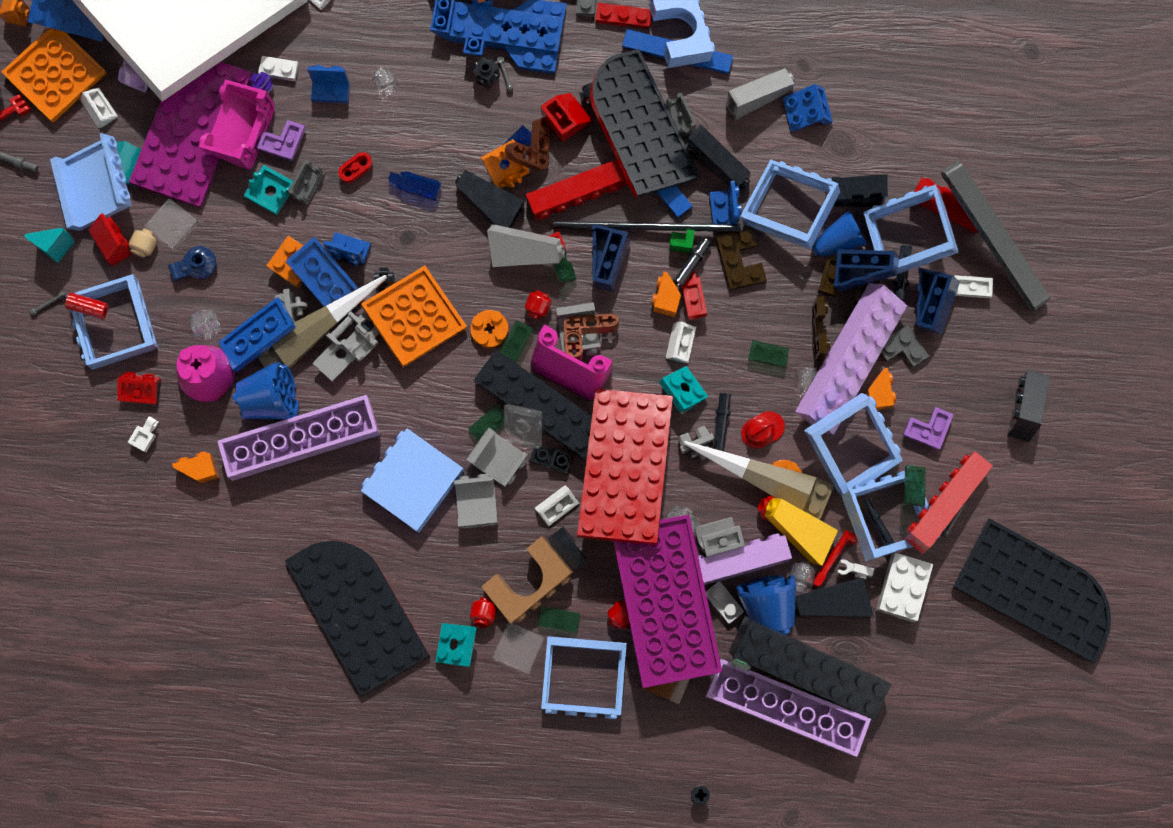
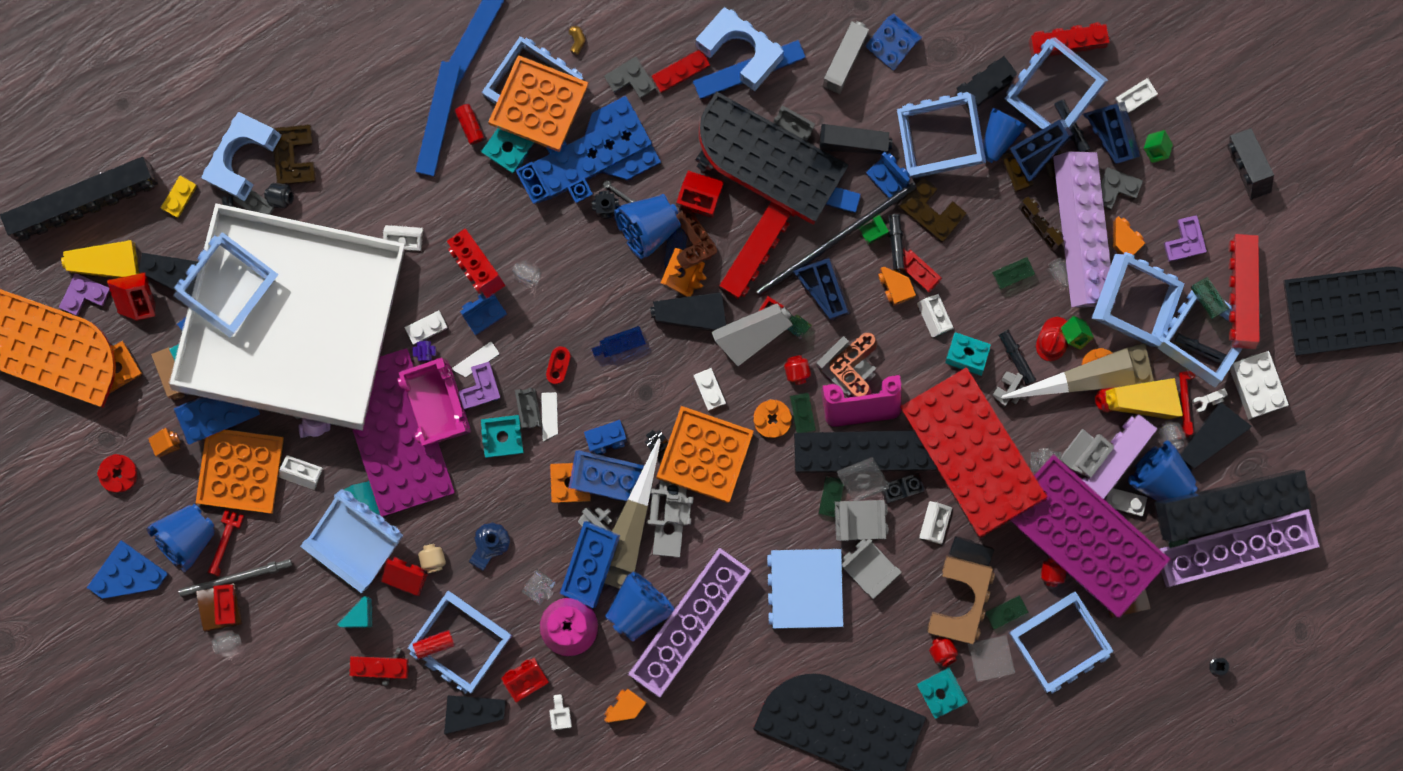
camera: 35 degrees left, 5 degrees up
(36, 296) = (379, 667): none -> red plate
(79, 383) = (471, 712): none -> black wing
(171, 224) = (442, 525): clear tile -> none
(307, 120) = (481, 356): none -> white sticker
(320, 201) = (549, 415): none -> white sticker
(349, 42) = (475, 262): none -> red brick
(458, 270) = (709, 389): none -> white plate
(506, 106) = (647, 223): none -> blue cone
(785, 437) = (1077, 332): none -> green panel
(961, 338) = (1158, 146): none -> green panel
(995, 236) = (1126, 43): dark grey beam -> none

